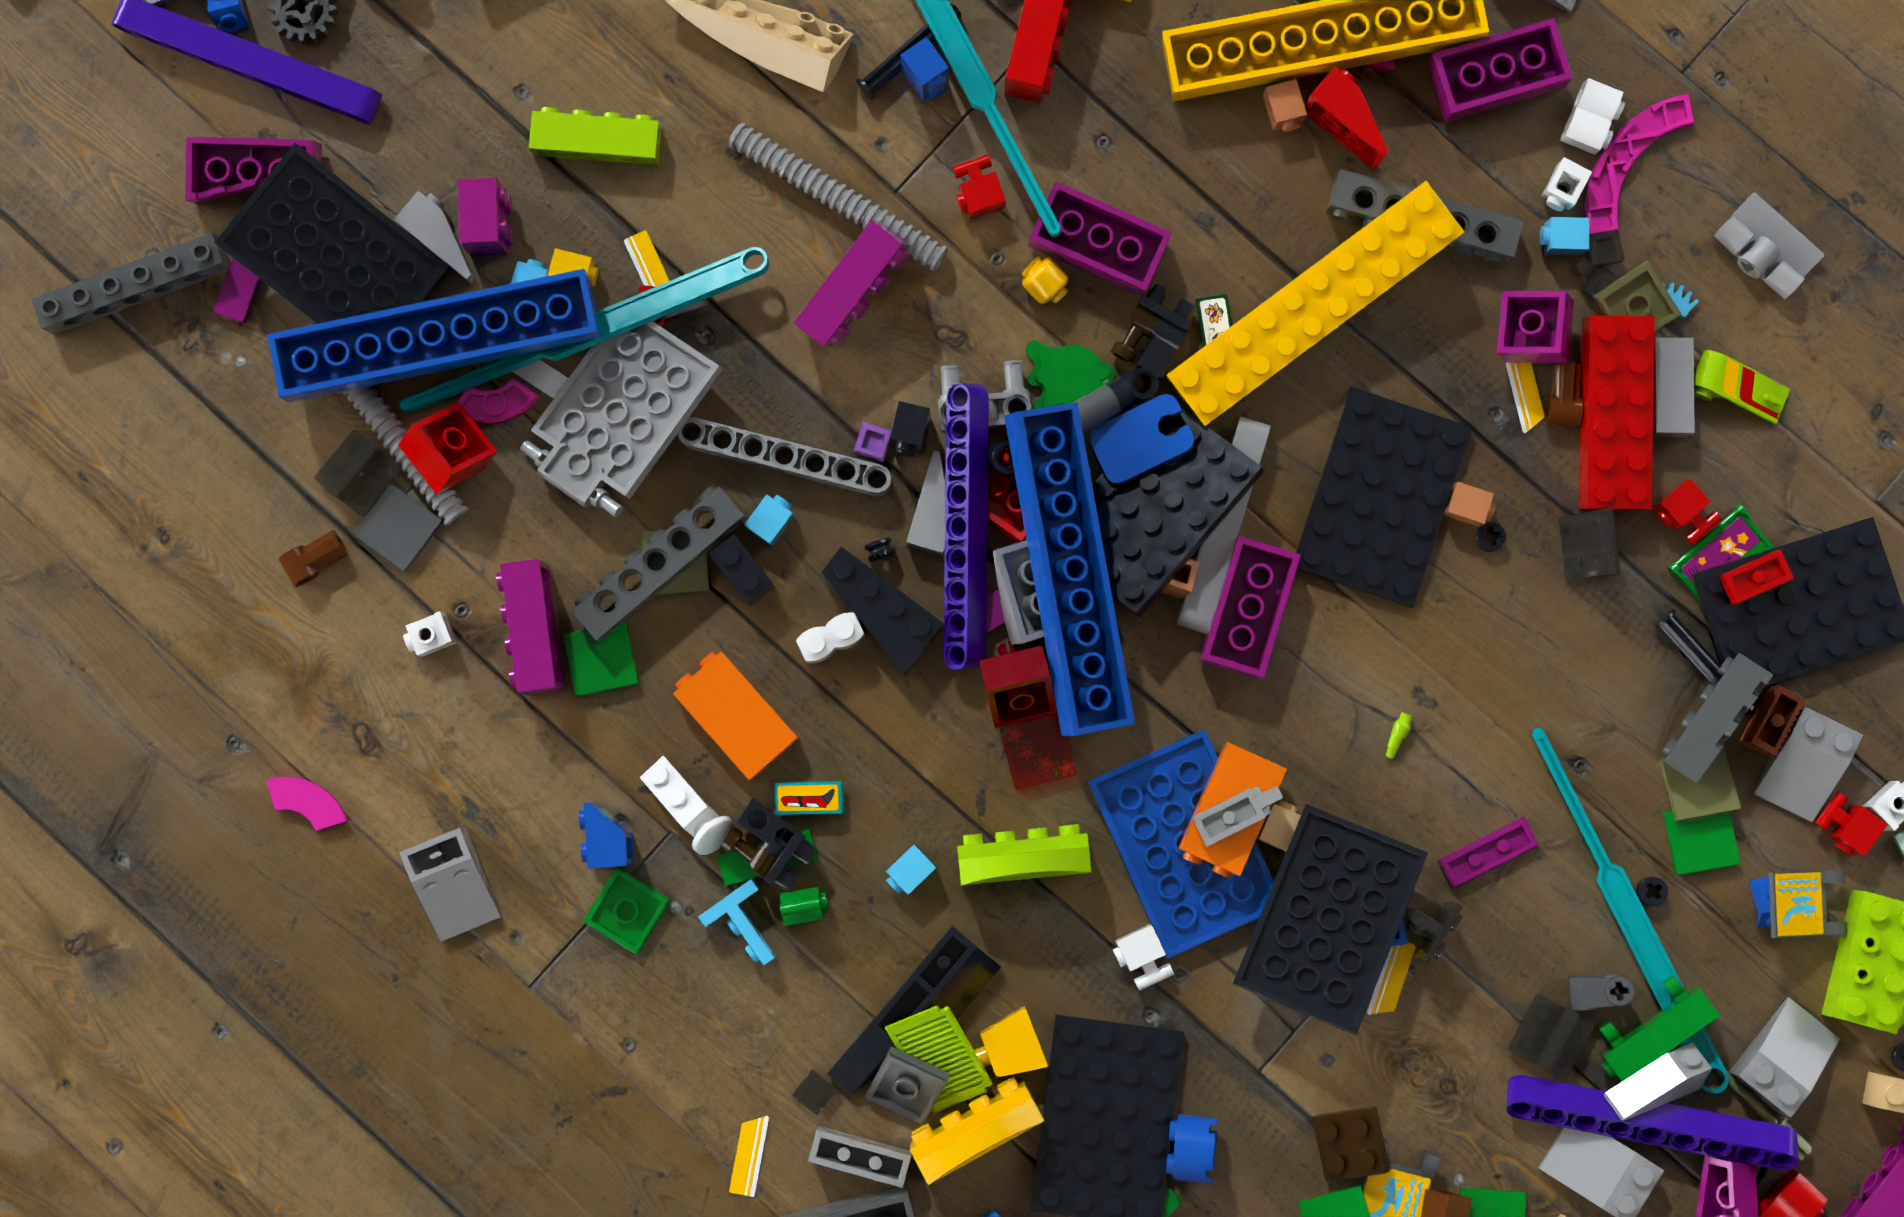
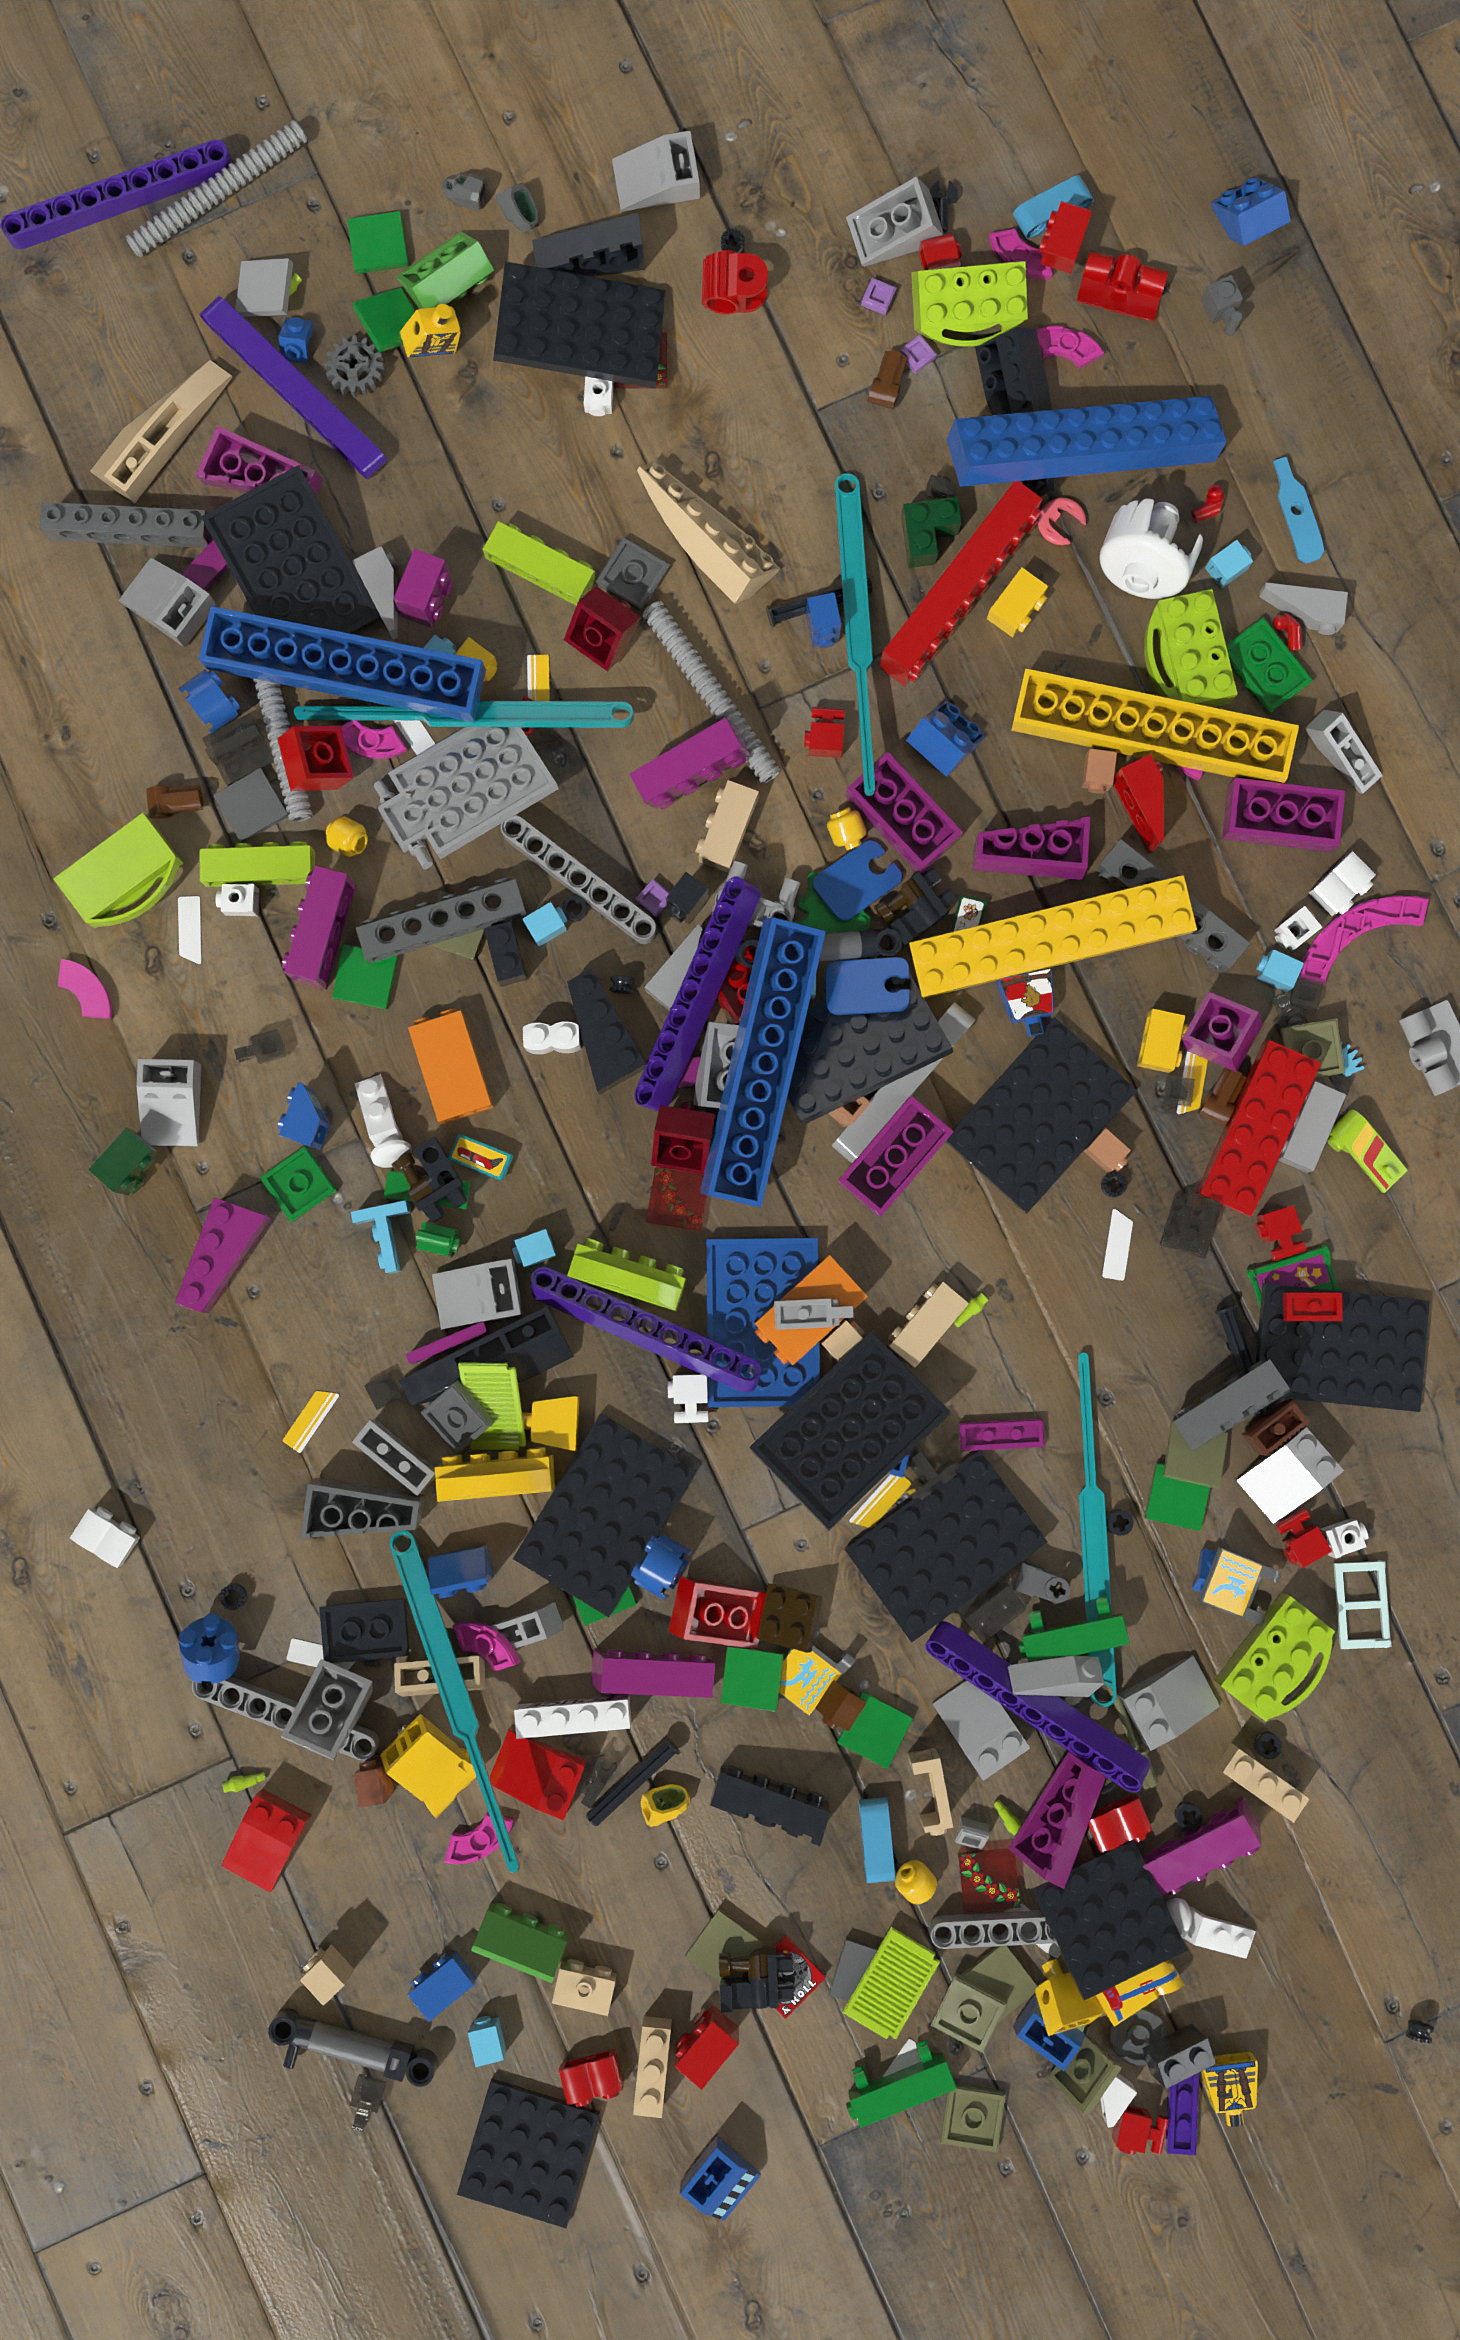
camera: 25 degrees right, 0 degrees up
(120, 173) = (158, 432): none -> tan wedge
(213, 346) = (168, 601): none -> light grey slope
(292, 661) = (121, 874): none -> lime piece
(306, 434) = (209, 700): none -> blue brick
(389, 687) = (189, 928): none -> white sticker
(432, 969) = (123, 1163): none -> dark green brick
(433, 589) = (256, 865): none -> lime brick
(516, 517) = (346, 836): none -> yellow head
(527, 780) = (264, 1047): none -> clear smoke plate
(575, 1018) = (219, 1252): none -> magenta wedge
(693, 178) = (601, 628): none -> dark red brick
(698, 105) = (632, 574): none -> dark grey tile
(792, 499) = (570, 915): none -> black bush
(861, 1011) = (447, 1343): none -> magenta tile
(870, 945) = (477, 1294): none -> light grey slope
(917, 332) = (727, 825): none -> tan brick
(1073, 338) = (850, 885): none -> blue piece
(1078, 915) = (652, 1340): none -> dark purple beam
(1108, 139) = (946, 737): none -> blue slope
(1257, 218) = (1038, 850): none -> magenta wedge
(1271, 1172) = (717, 1613): none -> red slope
(1316, 380) = (1028, 999): none -> torso
(1359, 769) = (926, 1323): none -> tan brick
(1475, 363) = (1162, 1041): none -> yellow brick
(1482, 997) = (946, 1546): none -> black plate
(1516, 409) = (1178, 1091): none -> clear smoke plate
(1522, 600) = (1117, 1246): none -> white sticker
(1861, 1177) = (1188, 1806): none -> black bush

